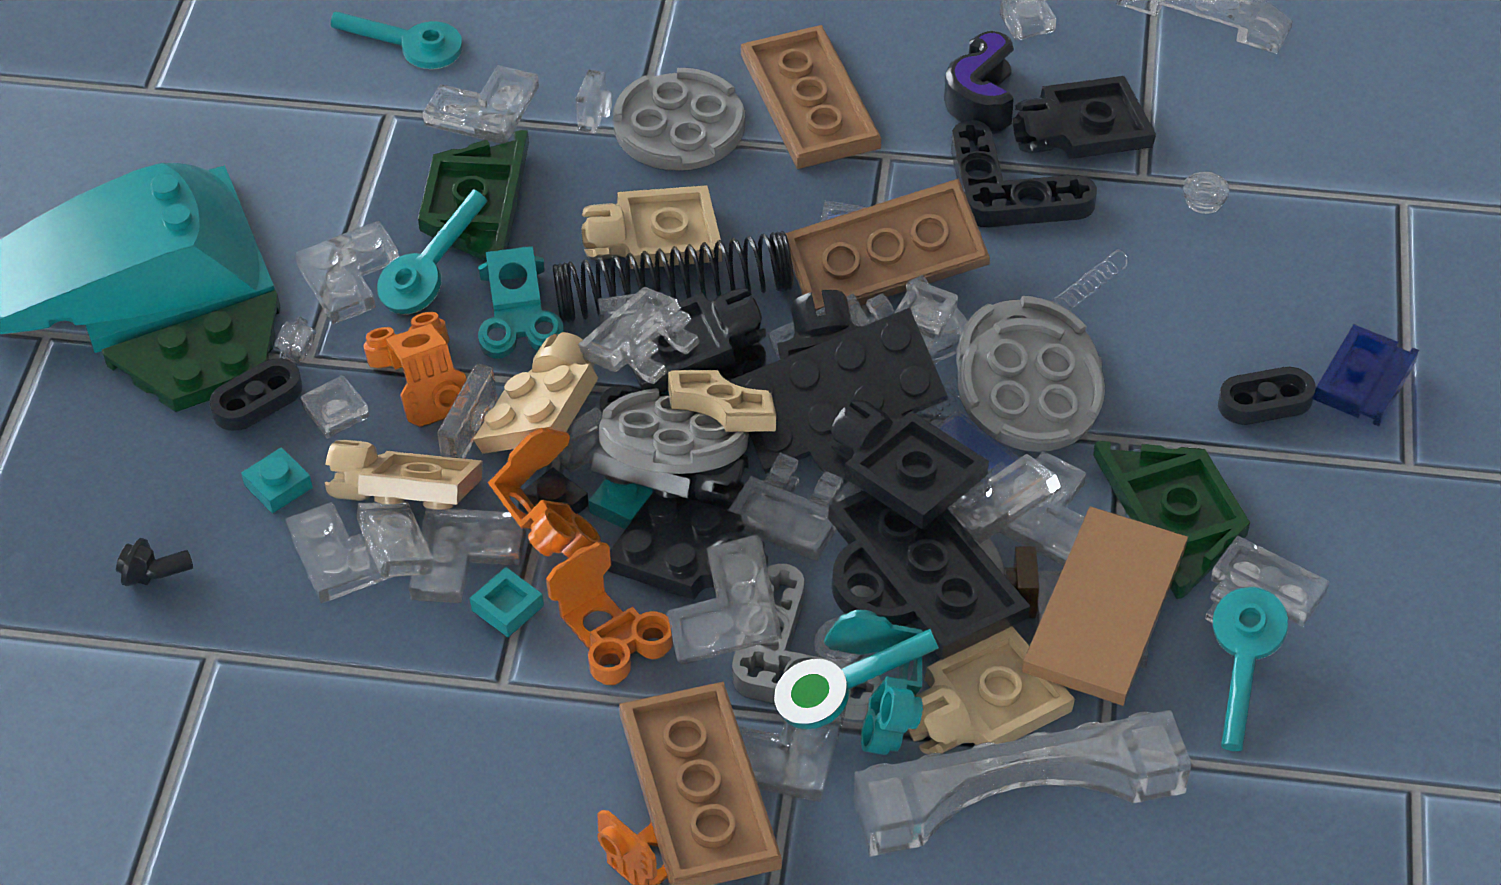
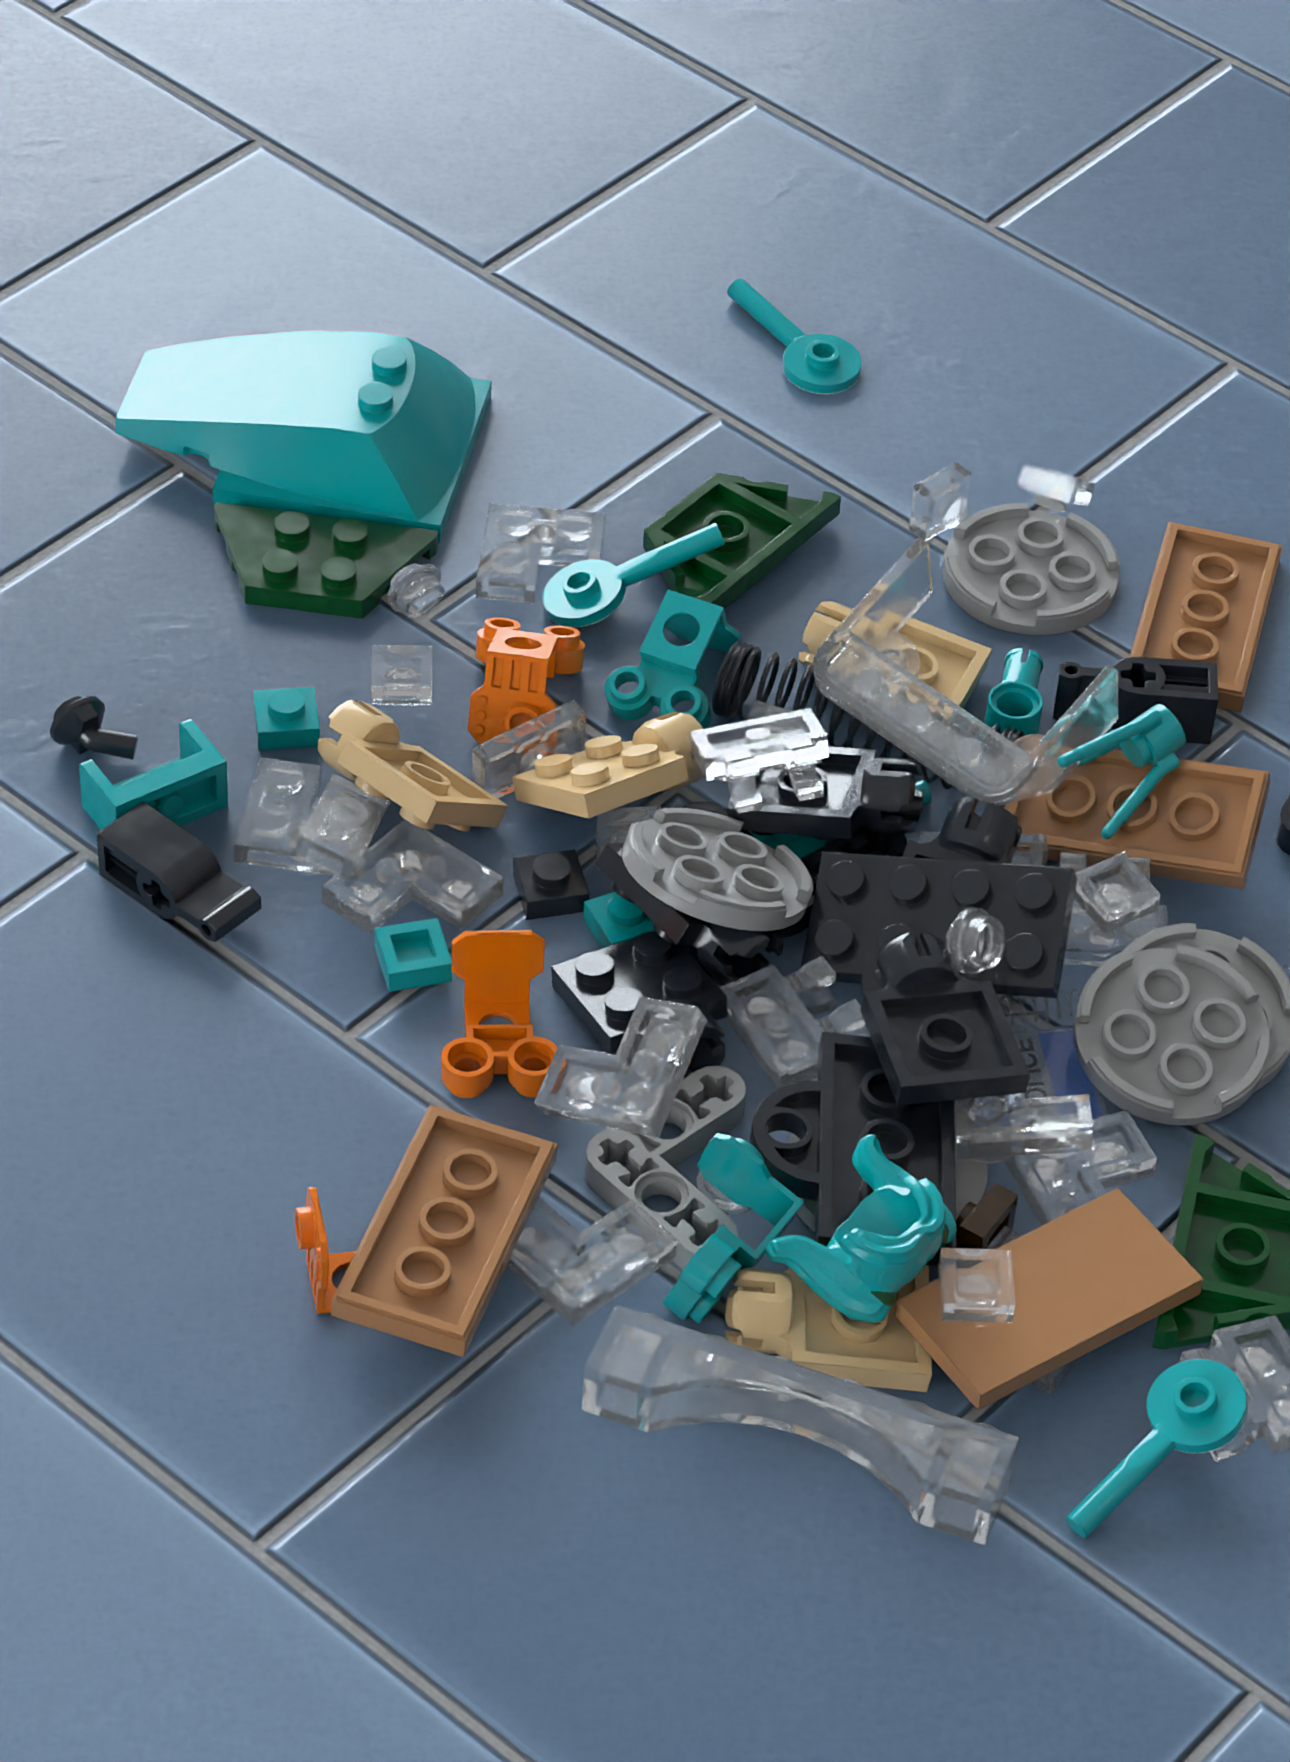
camera: 30 degrees right, 5 degrees down
(234, 582) = (177, 789): none -> teal panel
(256, 394) = (332, 622): black plate -> none
(295, 637) = (172, 873): none -> black piece
(486, 114) = (816, 460): clear plate -> none
(552, 523) = (510, 893): orange piece -> none
(654, 56) = (1054, 487): none -> clear plate
(684, 249) = (875, 679): none -> clear windscreen
(731, 405) = (793, 865): tan tile -> none
(750, 213) = (1017, 699): none -> teal pin
(818, 690) = (653, 1202): piece -> none
(826, 169) = (1180, 685): none -> black piece
(870, 199) = (1145, 740): none -> teal plant
(886, 389) = (975, 941): none -> clear plate
(993, 627) = (878, 1245): none -> teal hair
(1072, 623) = (976, 1285): none -> clear plate

